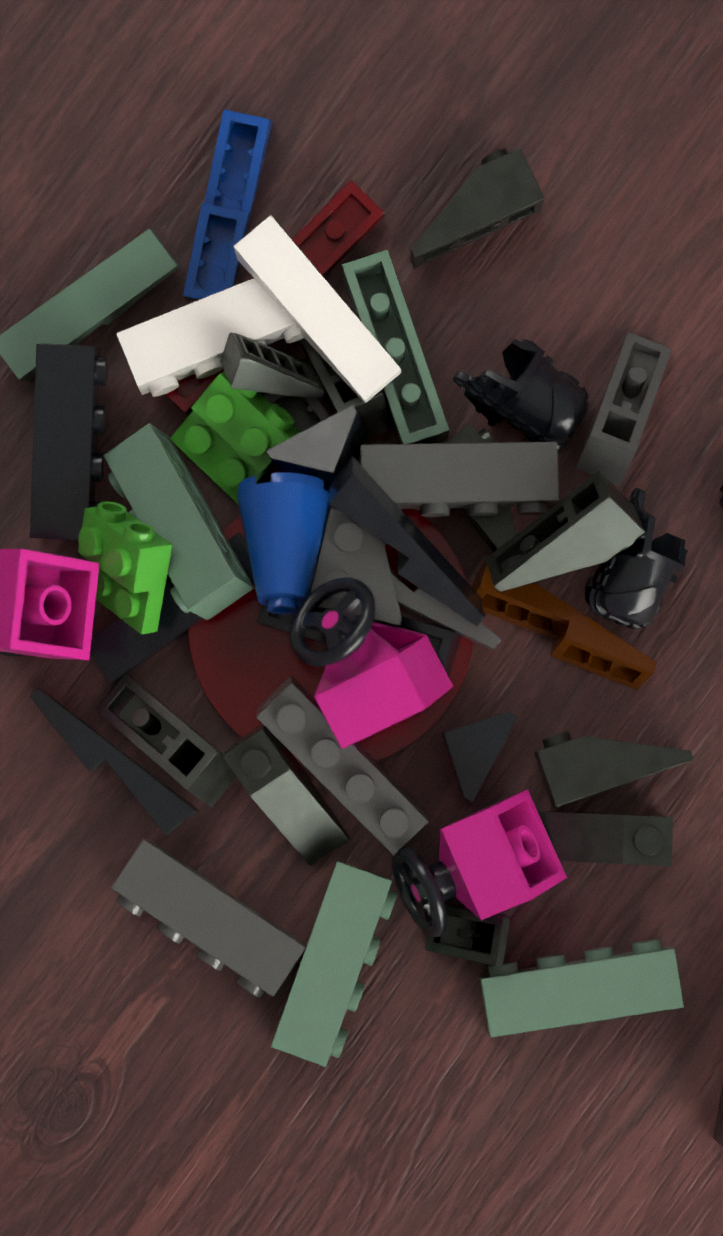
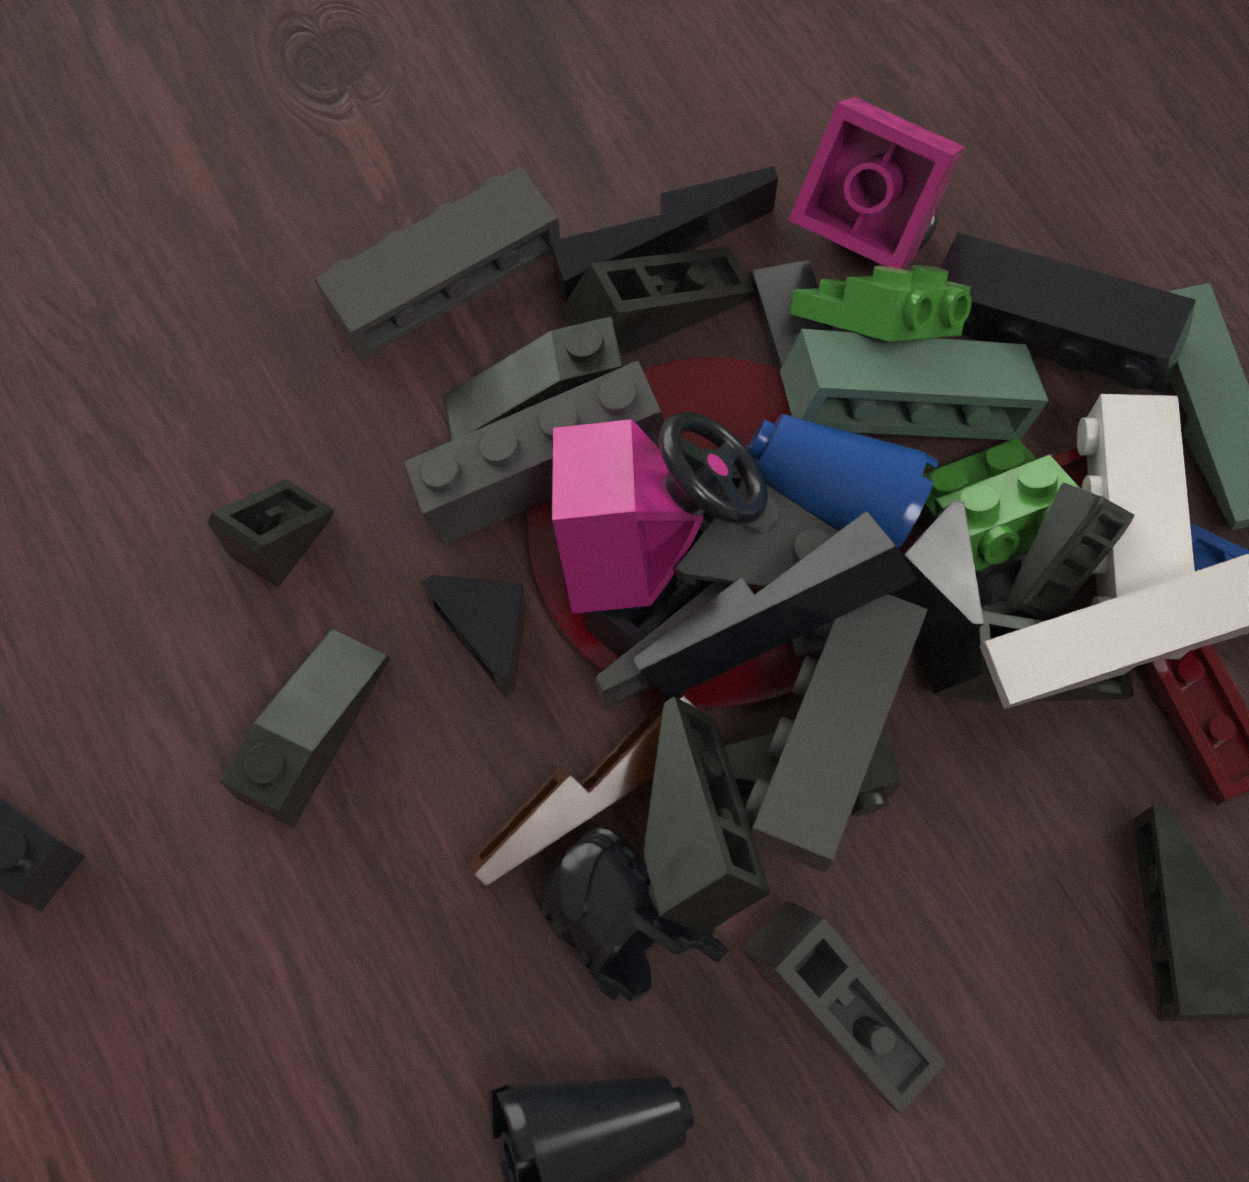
camera: 115 degrees right, 15 degrees down
(332, 962) = (322, 367): sand green brick -> none
(383, 311) = (1053, 735): sand green brick -> none
(484, 861) = (340, 576): dark pink piece -> none
(535, 398) = (900, 885): black helmet -> none
(580, 990) = (138, 626): sand green brick -> none
(593, 764) = (395, 762): pearl dark grey slope -> none

